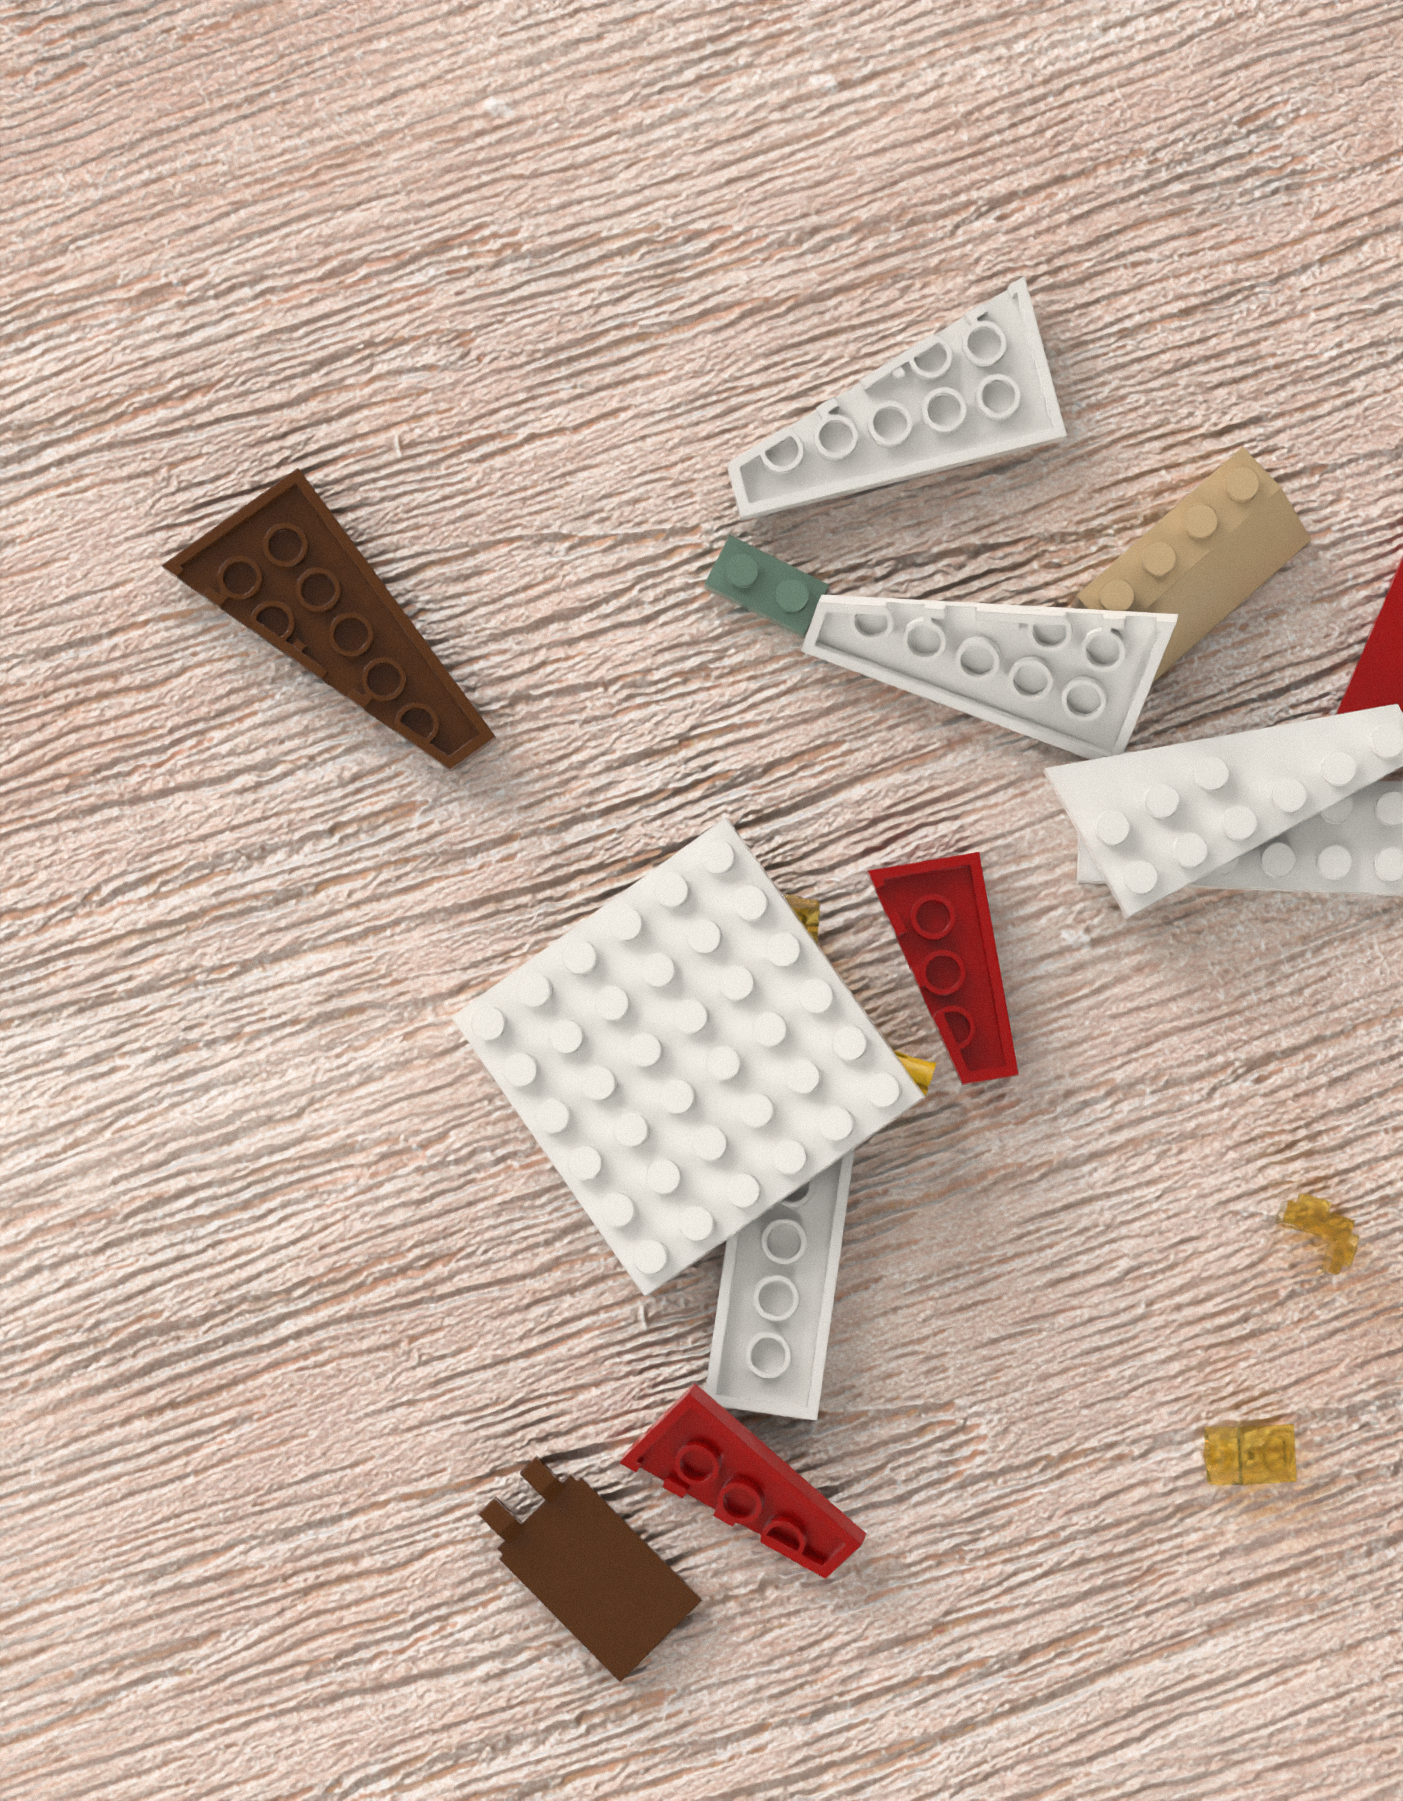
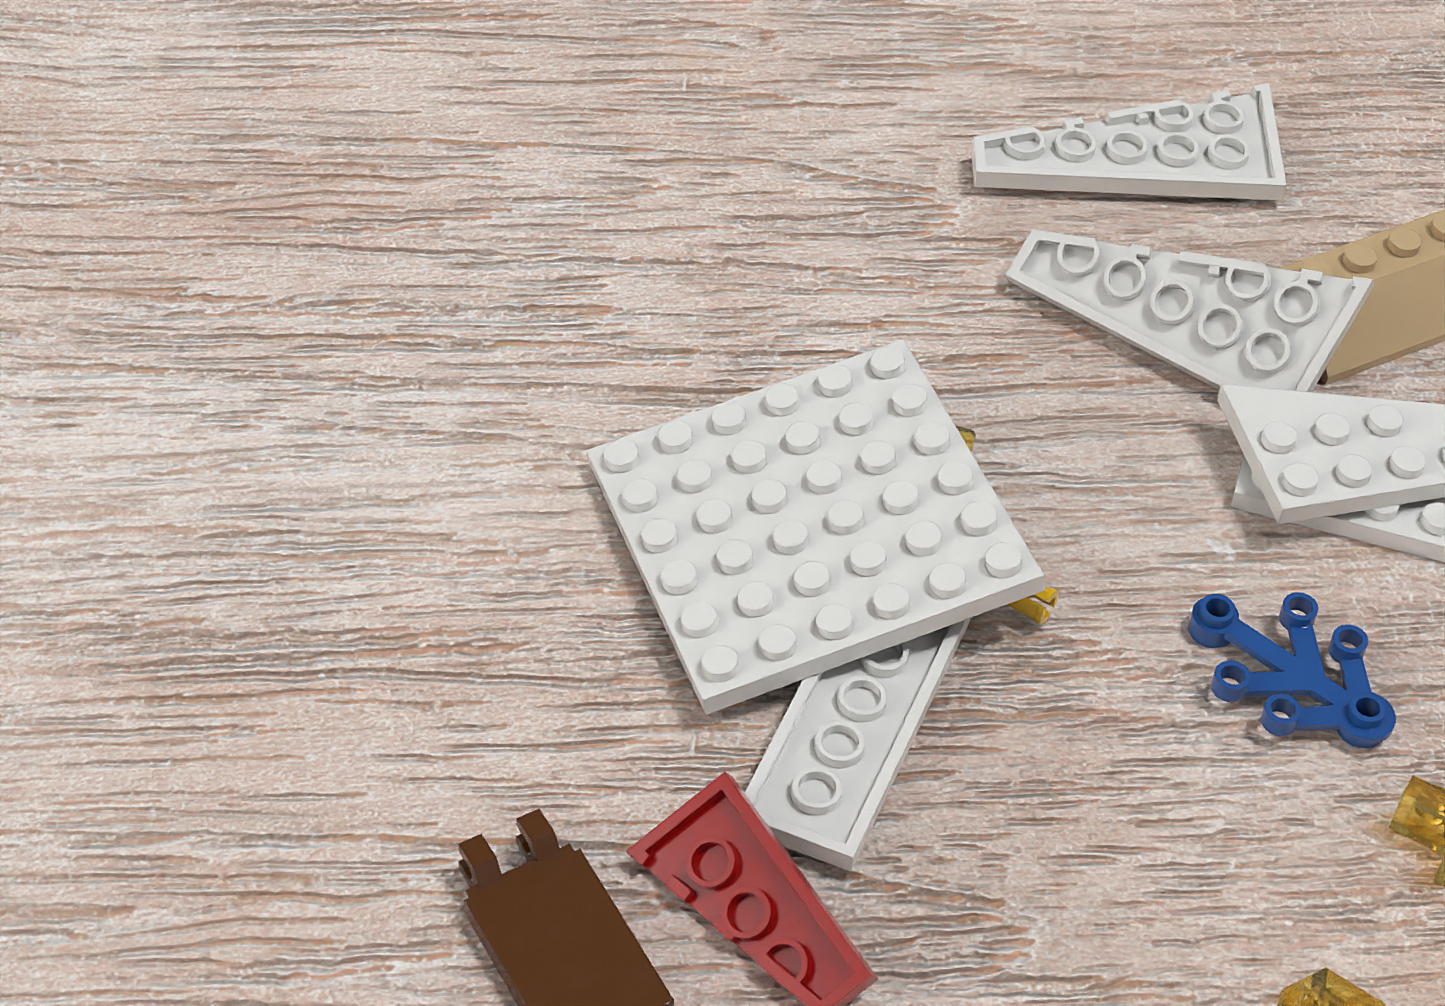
camera: 10 degrees right, 35 degrees down
(315, 598) = (584, 154): reddish brown wing -> none
(766, 586) = (978, 229): sand green plate -> none
(950, 947) = (1096, 523): red wing -> none
(1173, 1084) = (1217, 624): none -> blue plant

